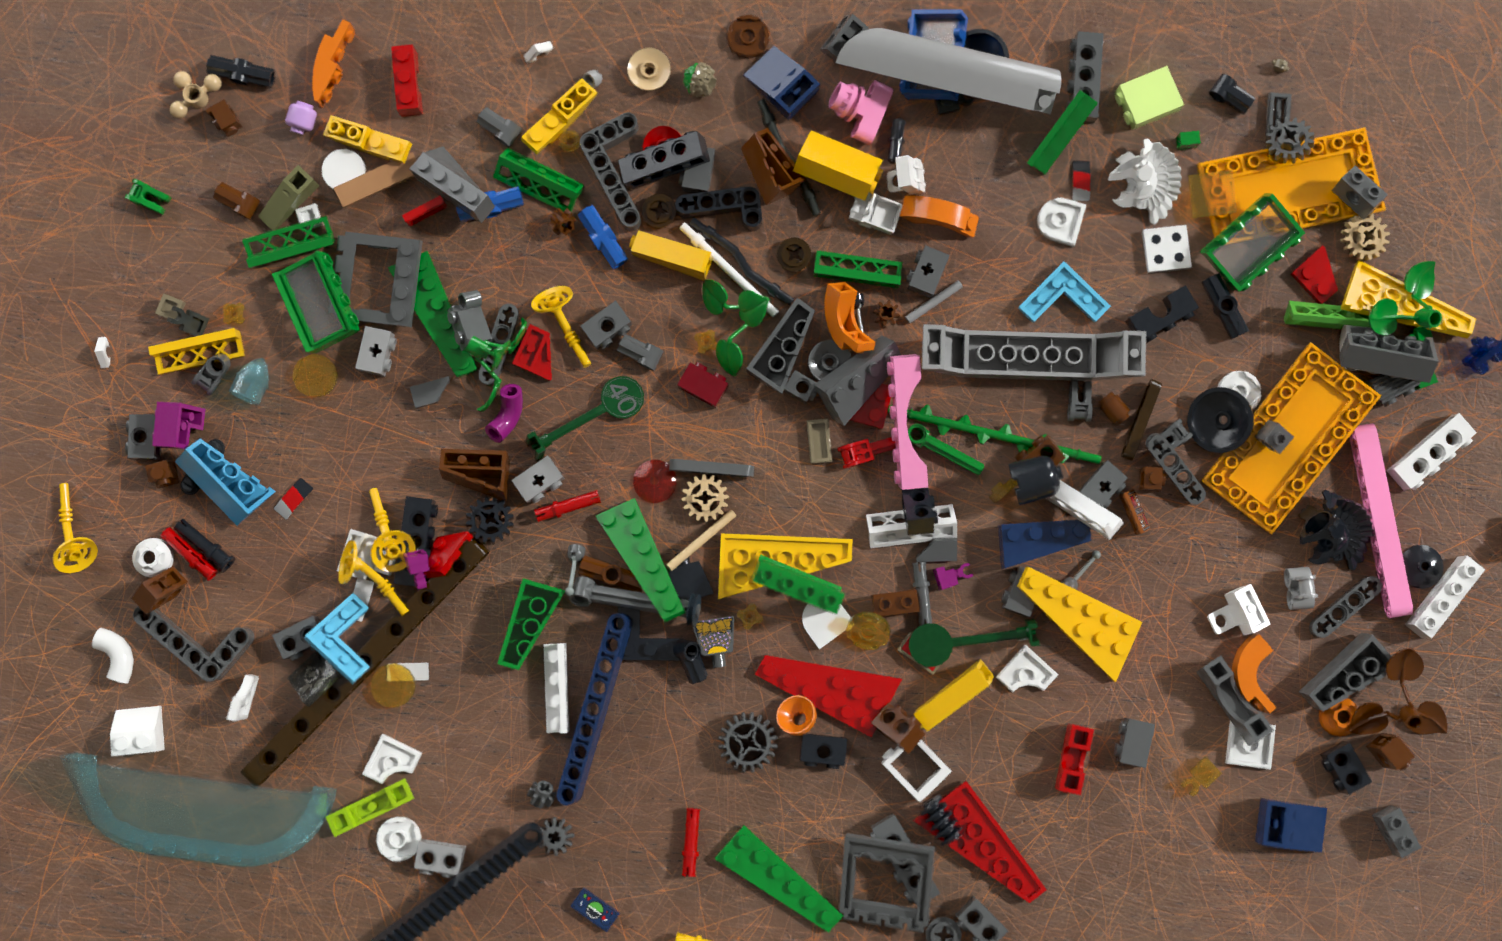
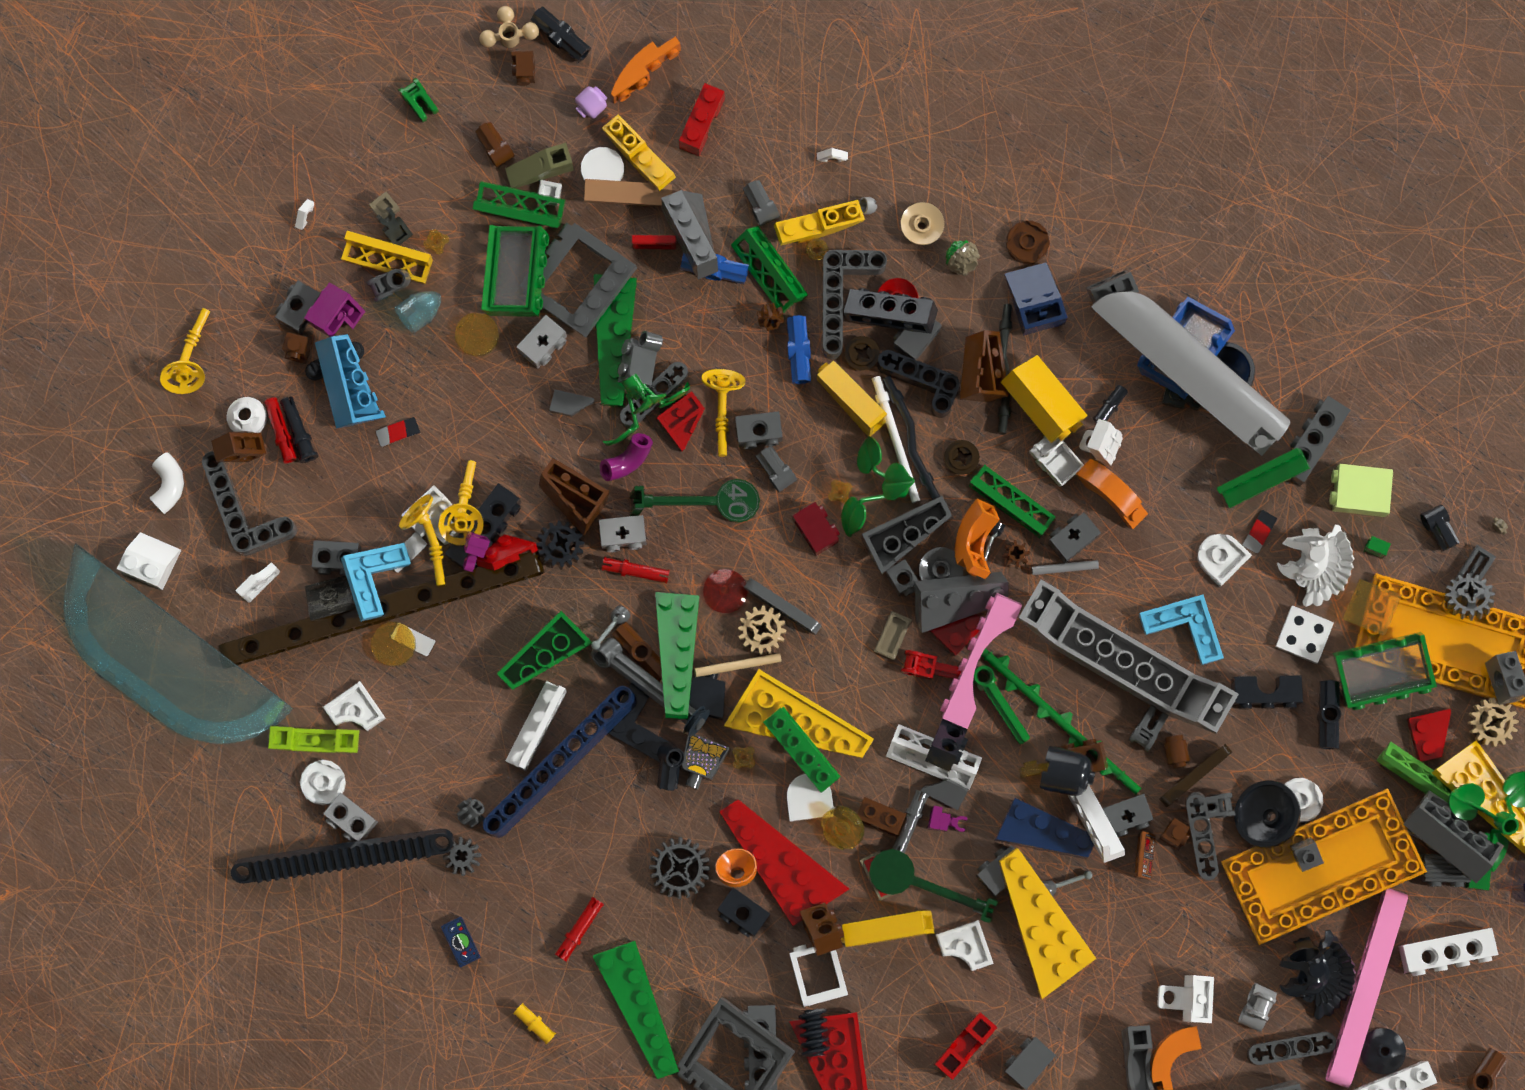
camera: 30 degrees right, 5 degrees down
(850, 103) = (1099, 365): bright pink beam -> none

